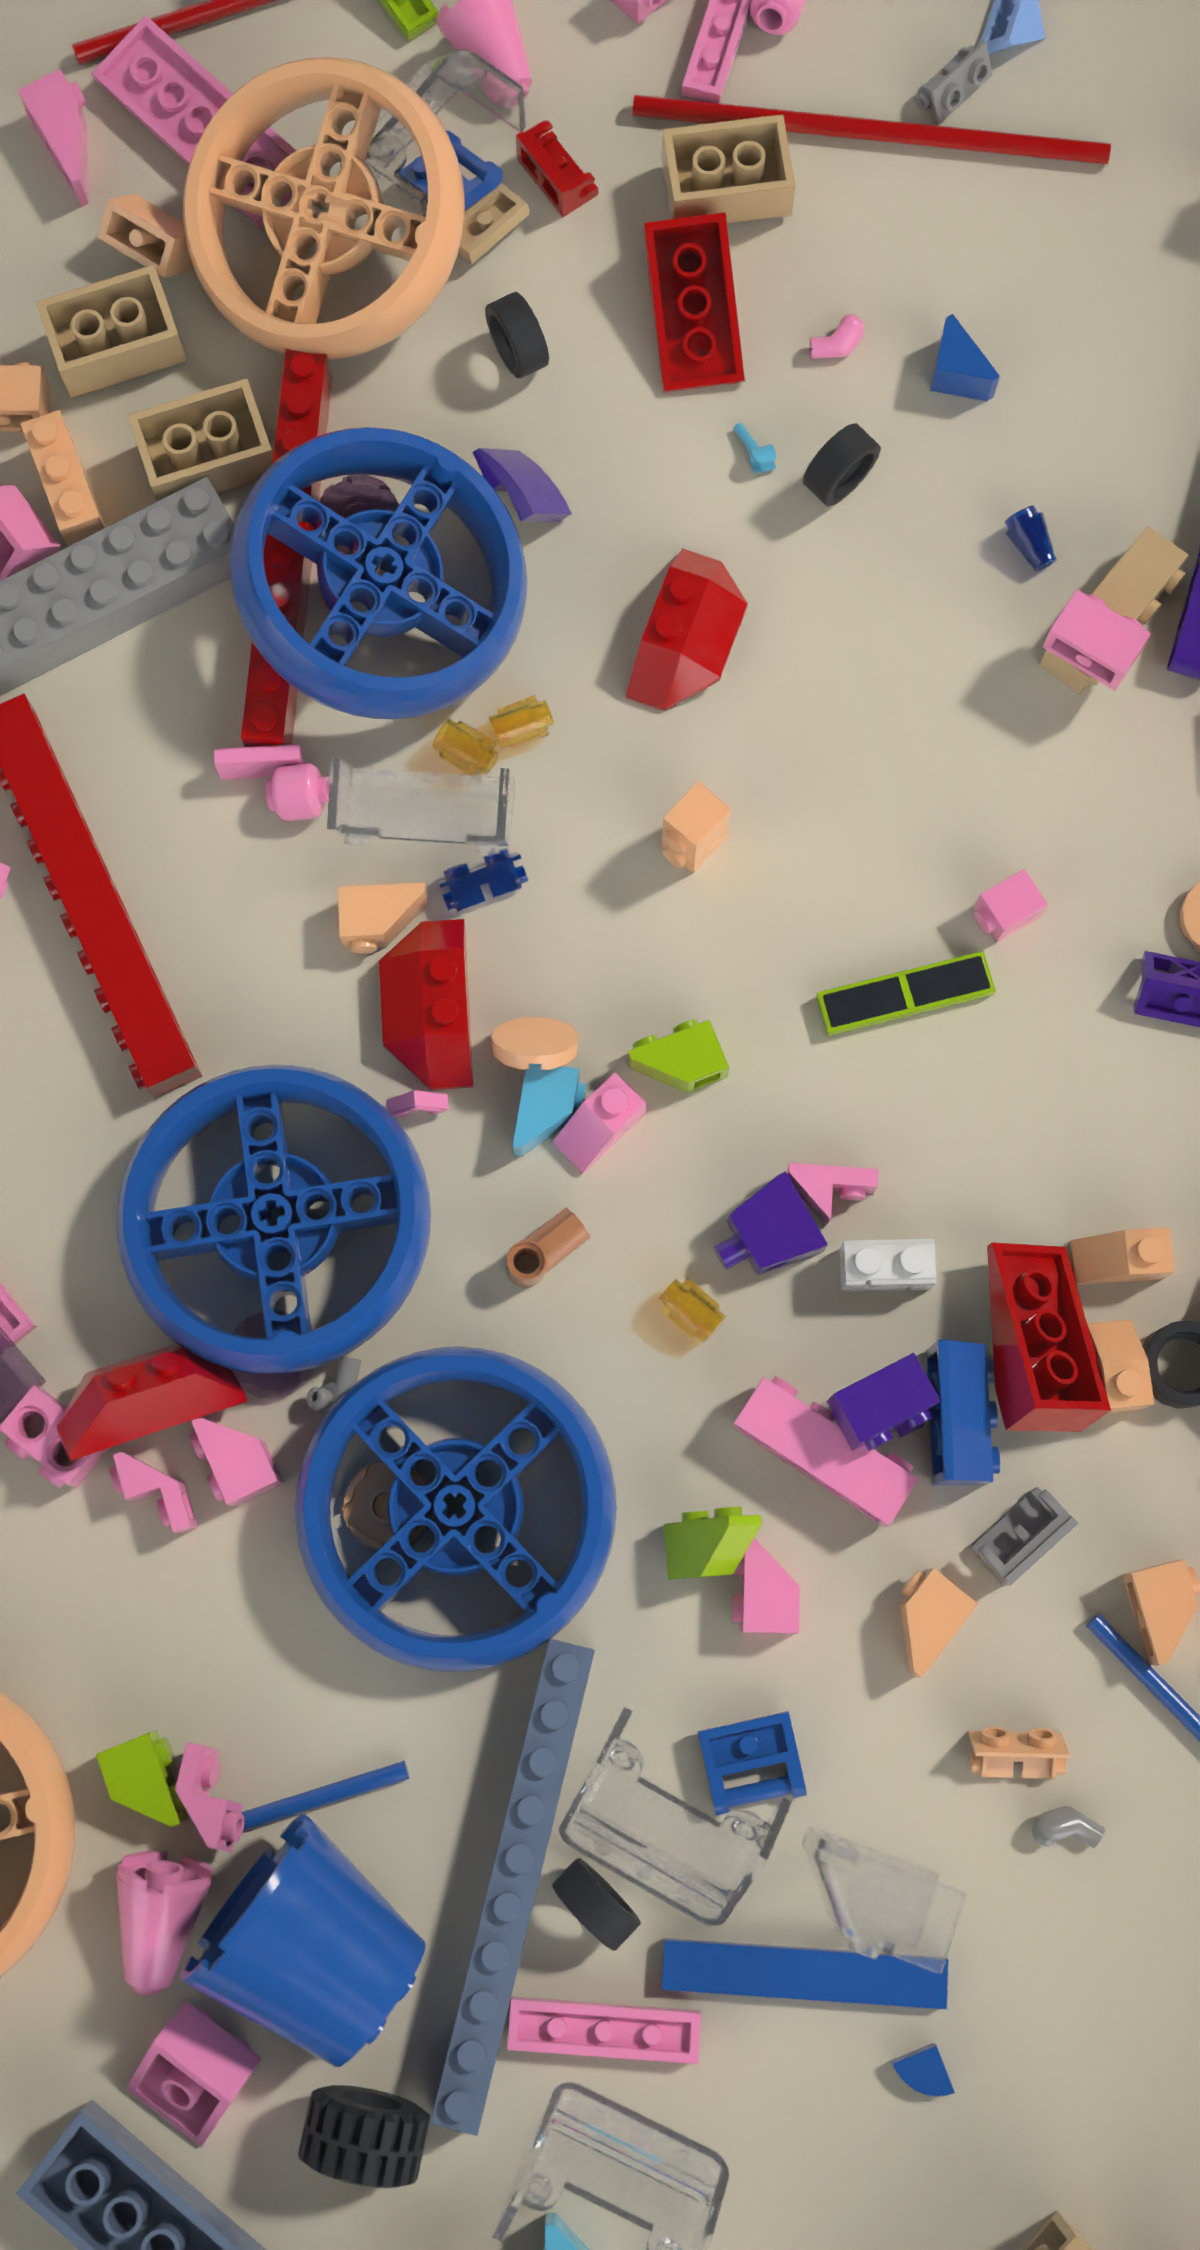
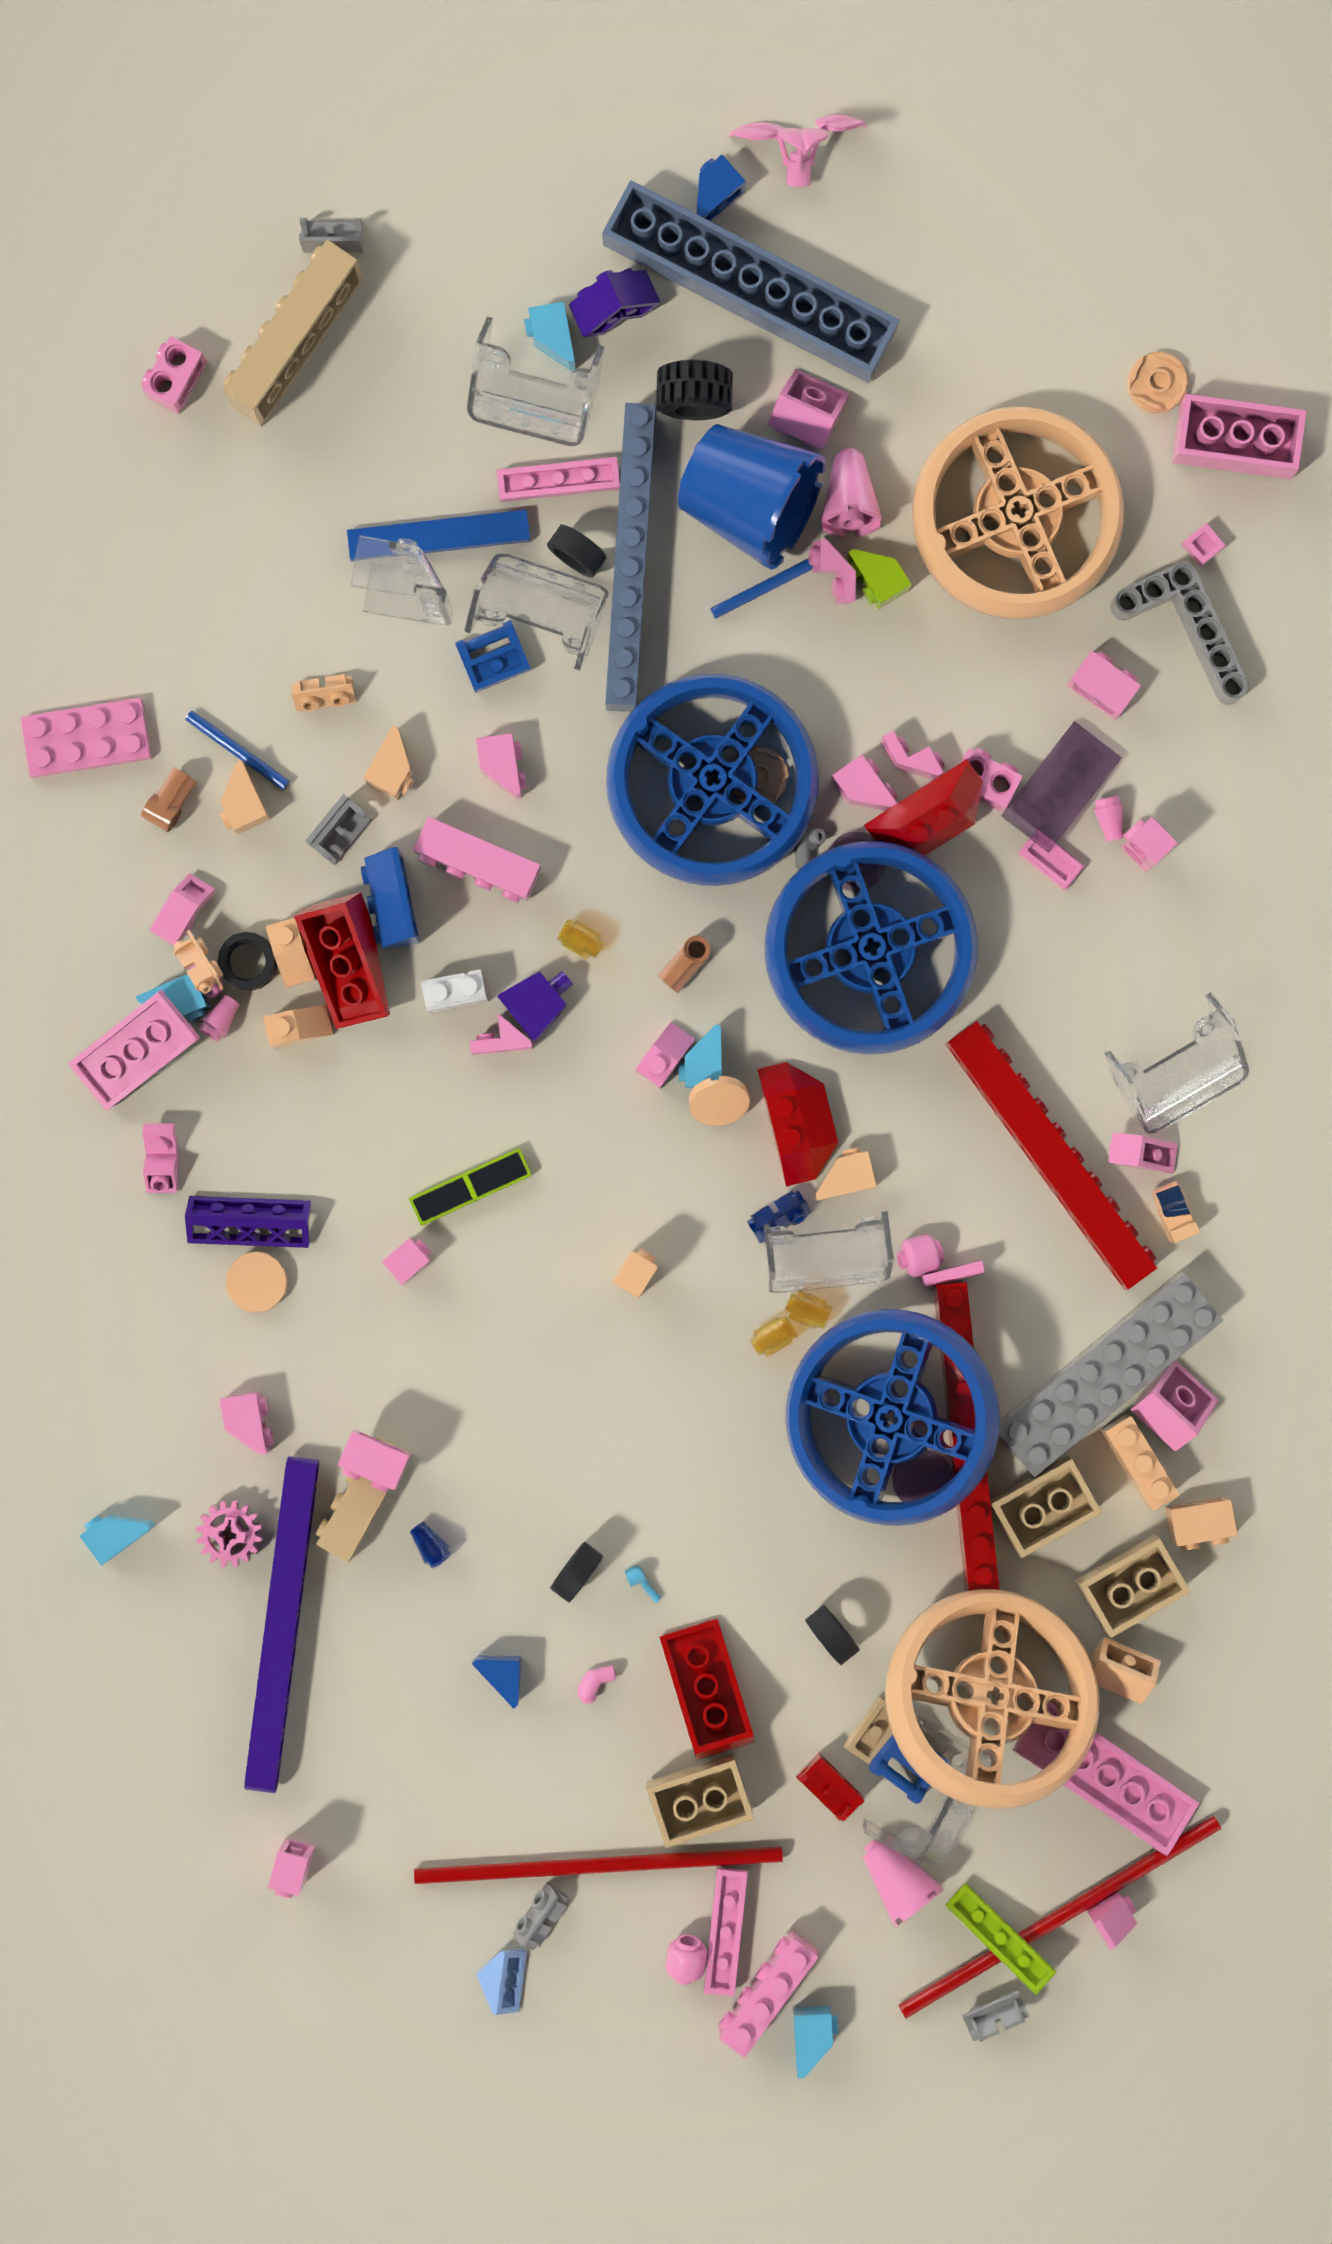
camera: 165 degrees right, 10 degrees up
(59, 120) = (1211, 1755): bright pink slope -> none
(417, 1100) = (792, 1047): bright pink tile -> none
(527, 485) = (804, 1516): dark purple slope -> none
(682, 1059) = (615, 1110): lime slope -> none
(687, 632) = (665, 1429): red wedge -> none
(708, 1545) = (544, 784): lime slope -> none
(883, 1403) = (443, 893): dark purple brick -> none
(924, 2071) = (355, 491): blue tile -> none
(1064, 1823) = (287, 655): light grey arm -> none

